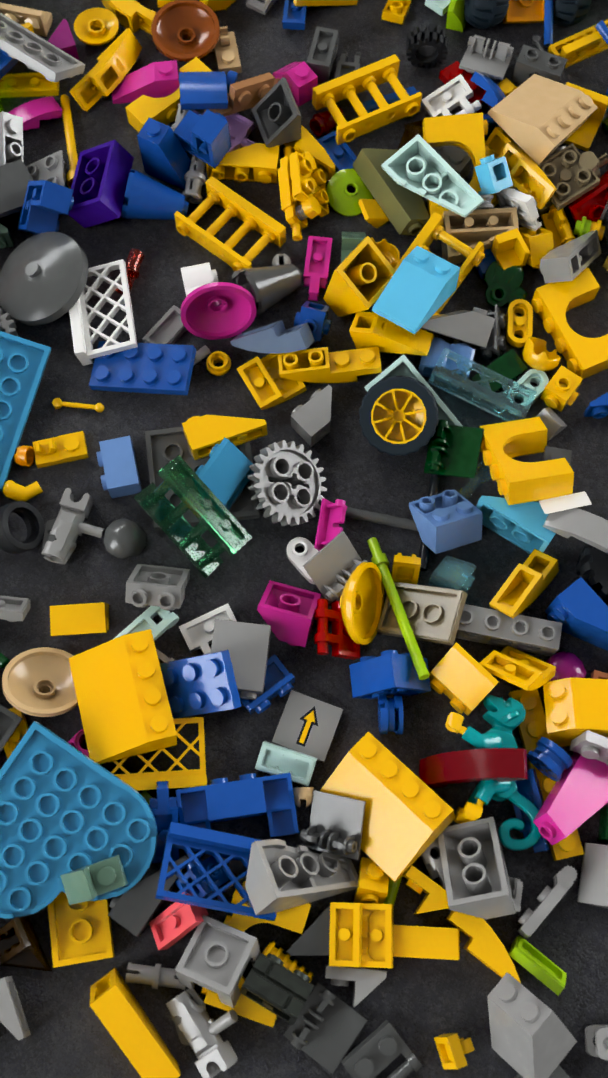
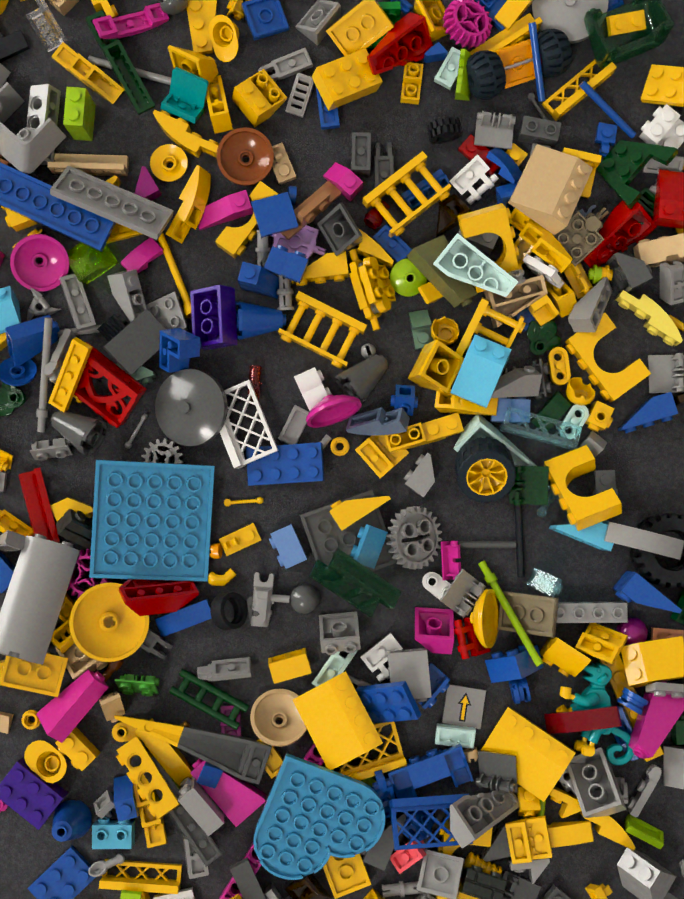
camera: 10 degrees left, 15 degrees up
(94, 880) = (350, 845): sand green slope -> none
(317, 264) = (396, 347): dark pink hinge -> none
(406, 568) = (510, 581): yellow tile -> none
(446, 521) = (532, 540): medium blue slope -> none
(493, 175) = (521, 257): medium azure brick -> none
(525, 584) = (596, 578): yellow slope -> none
(565, 502) = (617, 522): white sticker -> none

